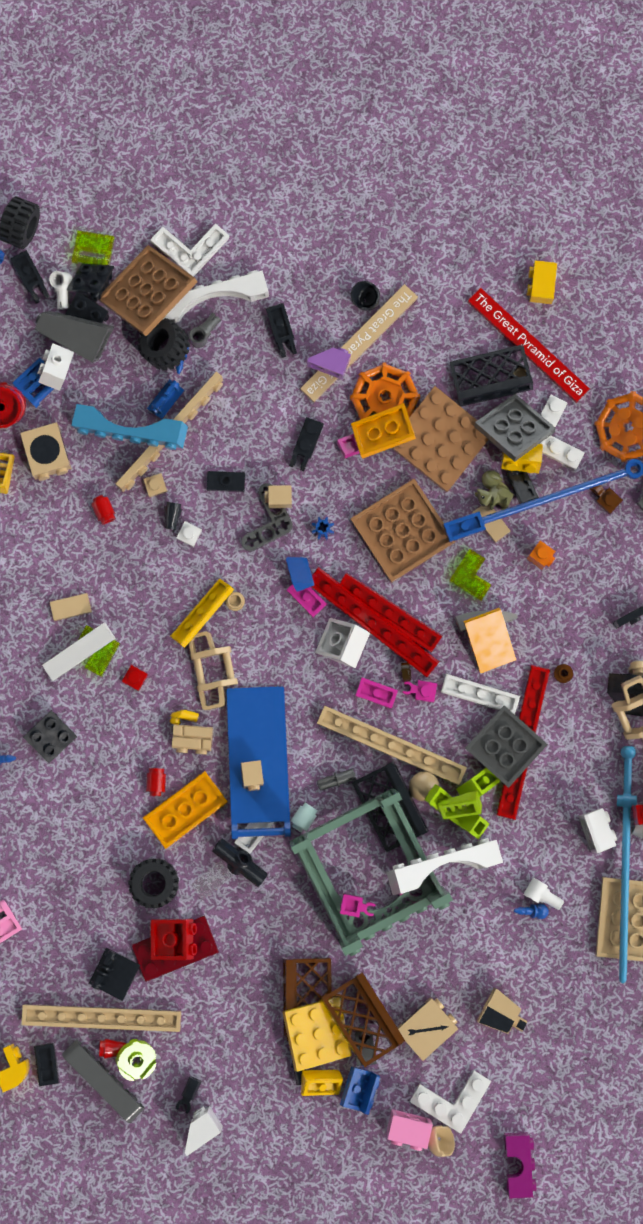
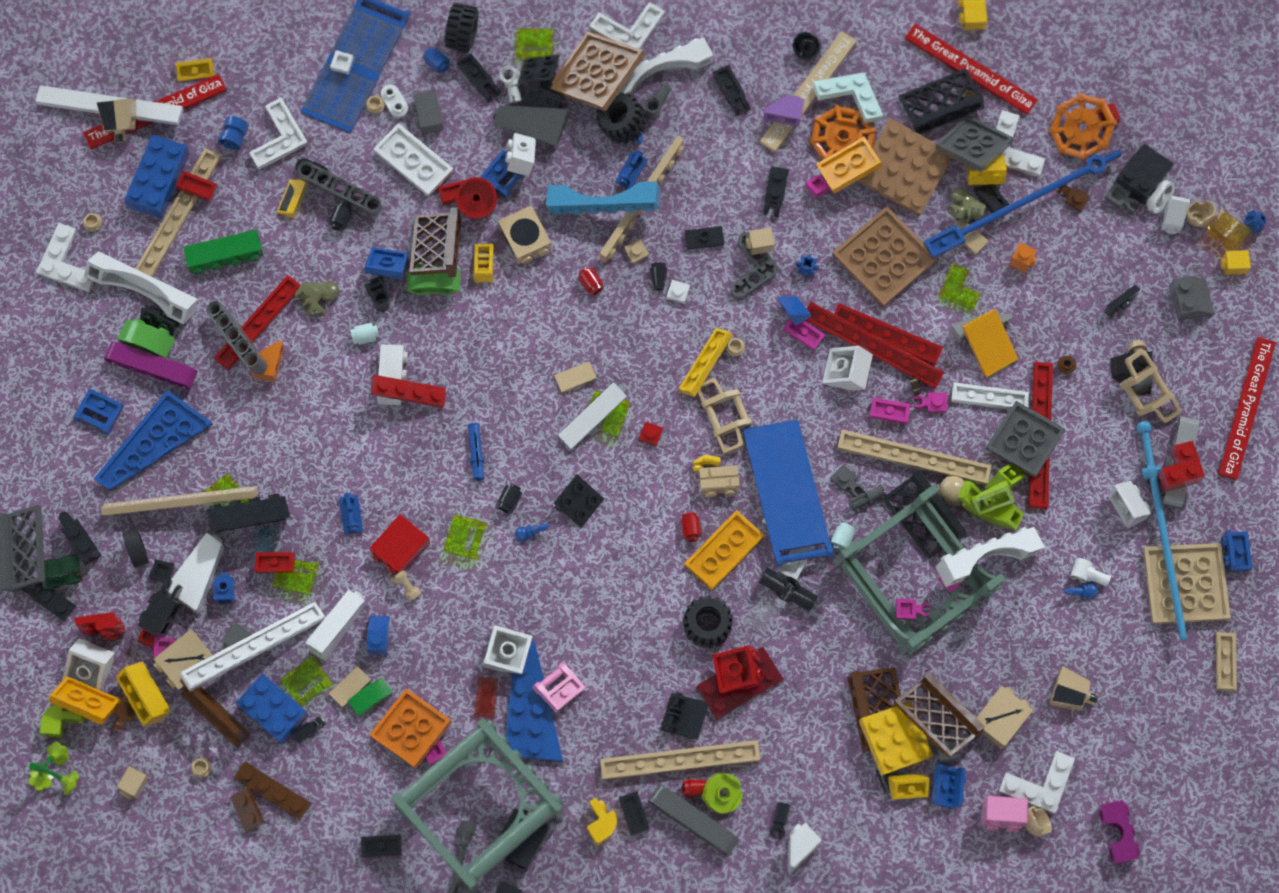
camera: 10 degrees left, 10 degrees down
(252, 775) = (785, 502): tan brick -> none
(318, 756) = (845, 478): none -> dark grey plate
(401, 343) = (851, 84): none -> light aqua plate

